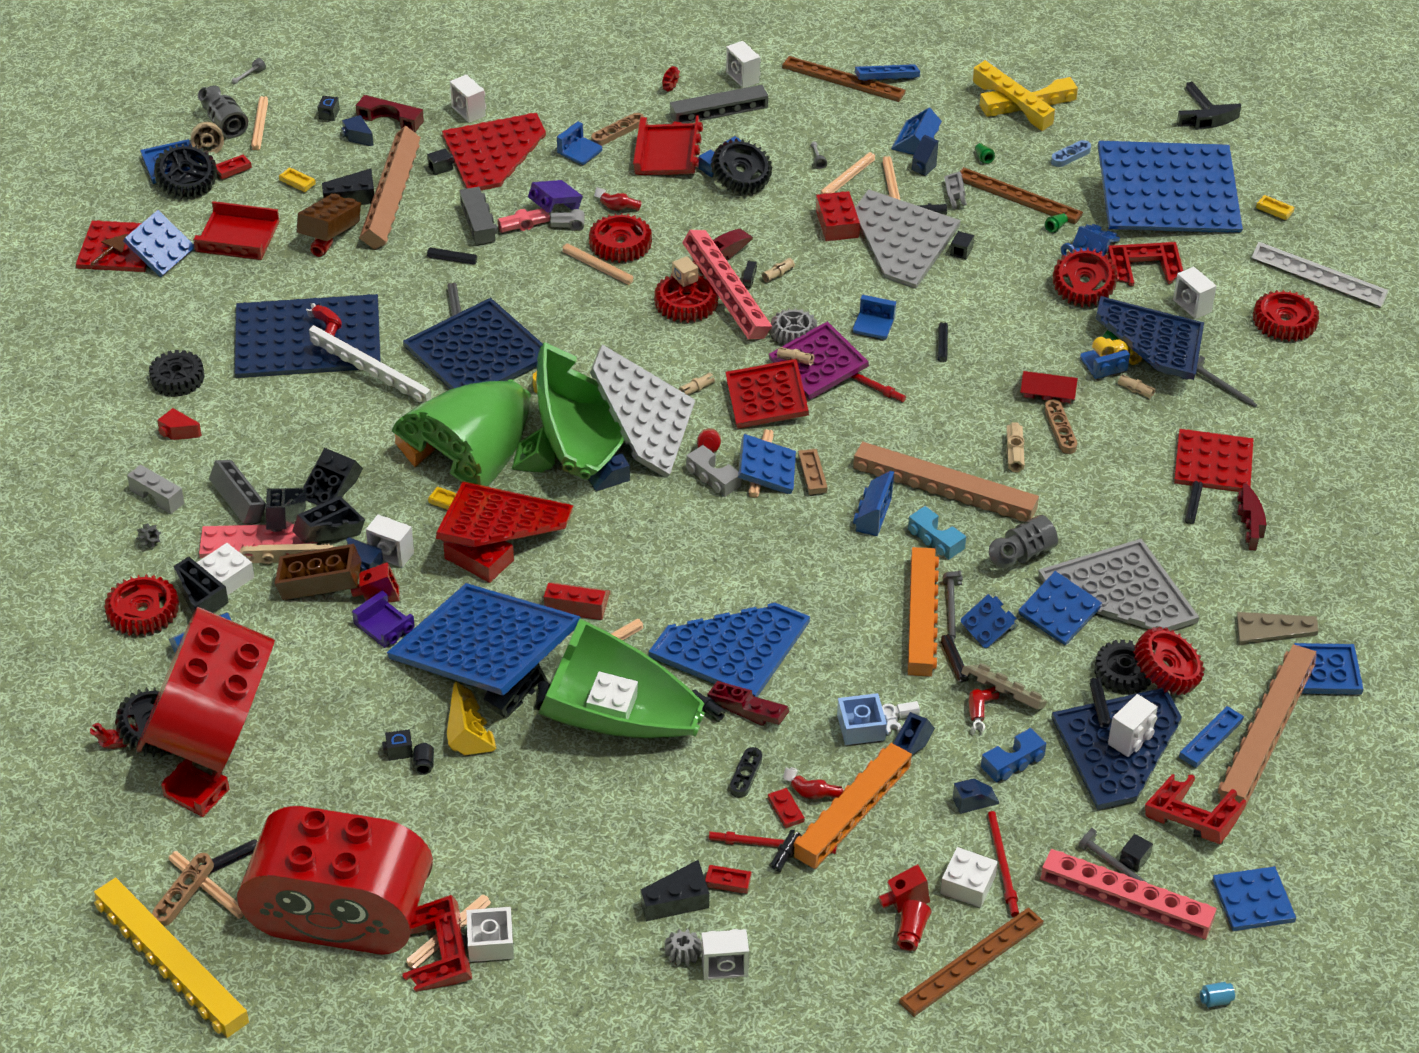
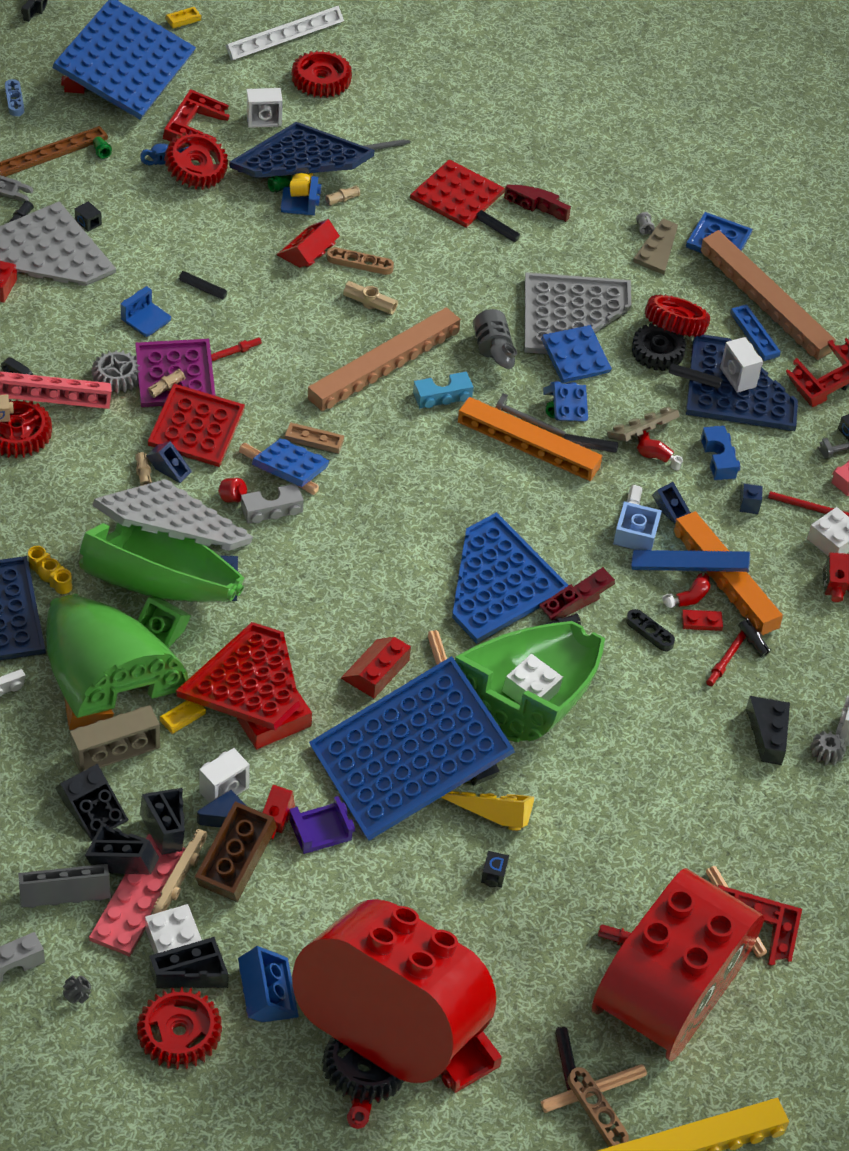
camera: 70 degrees left, 5 degrees up
(392, 465) = (115, 738): none -> dark tan brick
(423, 758) = (521, 856): black brick -> none
(489, 934) = (763, 874): white brick -> none
(714, 394) = (169, 462): none -> dark blue slope
(728, 879) = (767, 685): red plate -> none
(778, 270) = (25, 349): tan pin -> none
(842, 769) = (691, 560): none -> blue tile
(875, 504) = (390, 410): blue slope -> none
(1094, 238) = (145, 134): blue bracket -> none
(1295, 604) = (645, 223): none -> light grey bush

